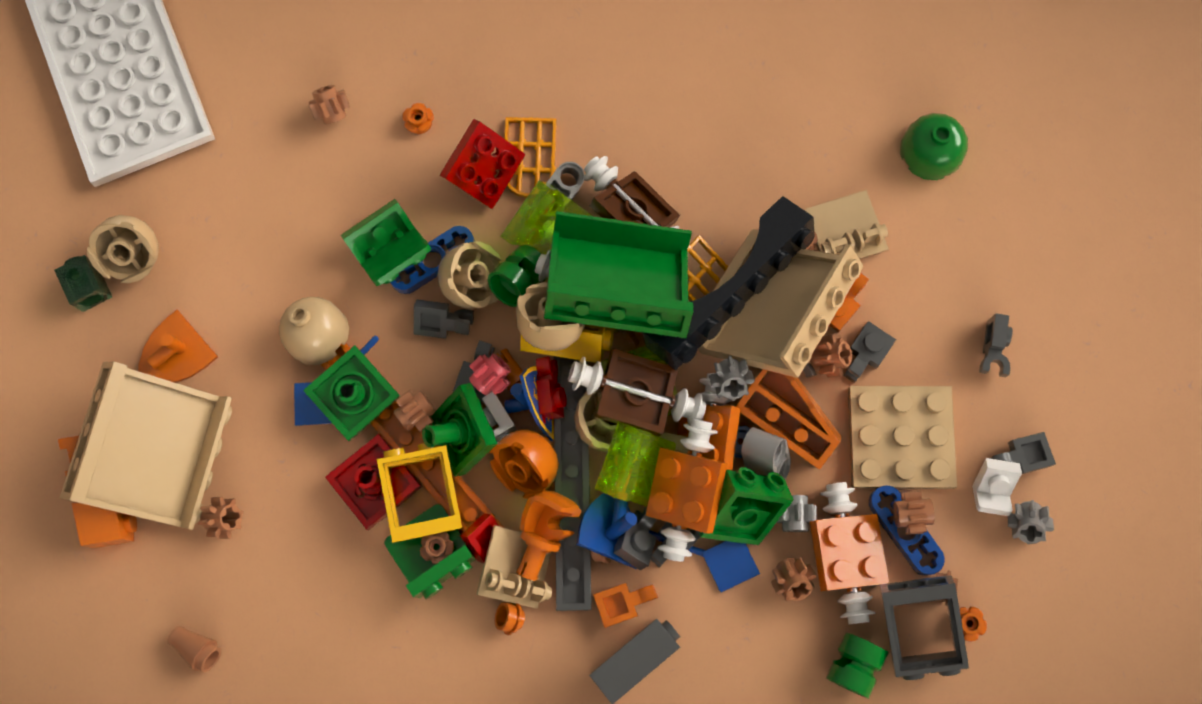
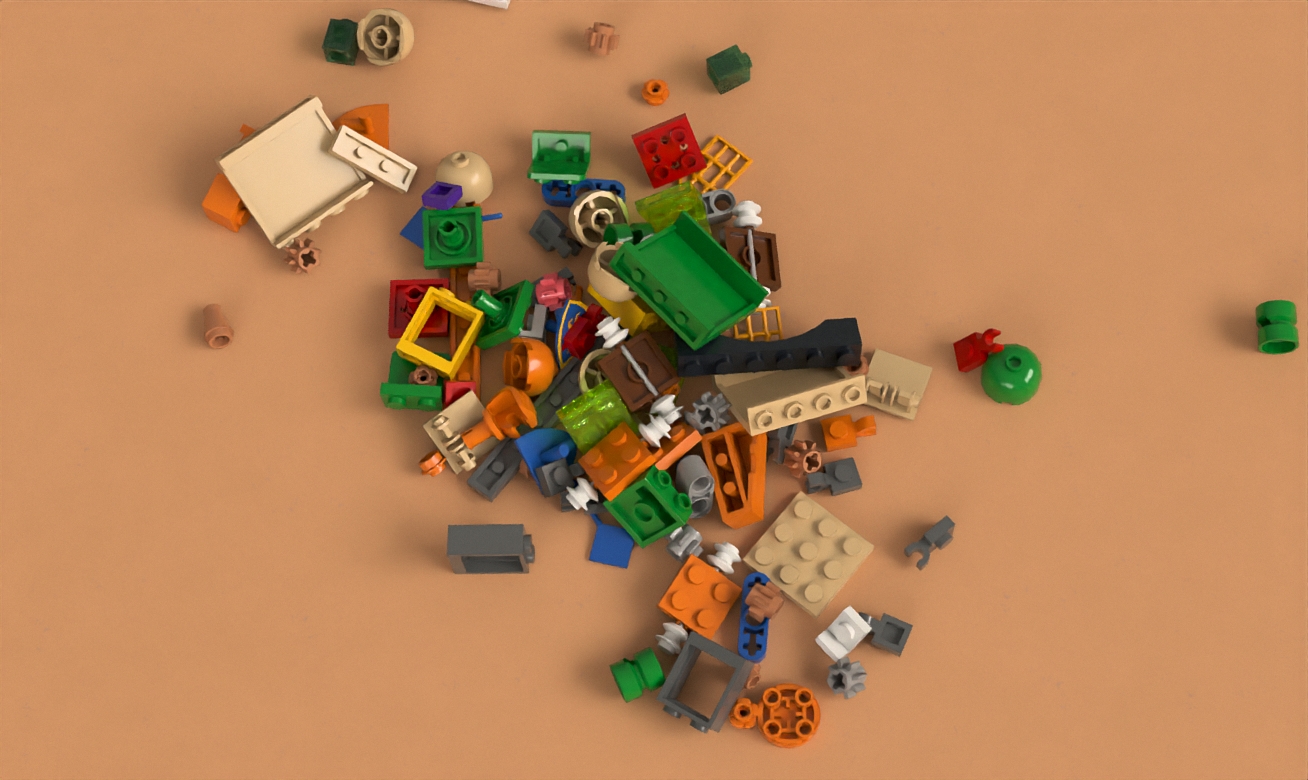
camera: 40 degrees right, 10 degrees down
(211, 376) = (372, 159): none -> tan plate
(311, 363) = (442, 195): none -> dark purple plate
(469, 49) = (729, 69): none -> clear green brick
(619, 603) = (515, 510): orange plate -> none
(793, 579) = (644, 585): nougat gear -> none
(891, 148) = (974, 349): none -> red plate
(1006, 593) = (788, 715): none -> orange tile

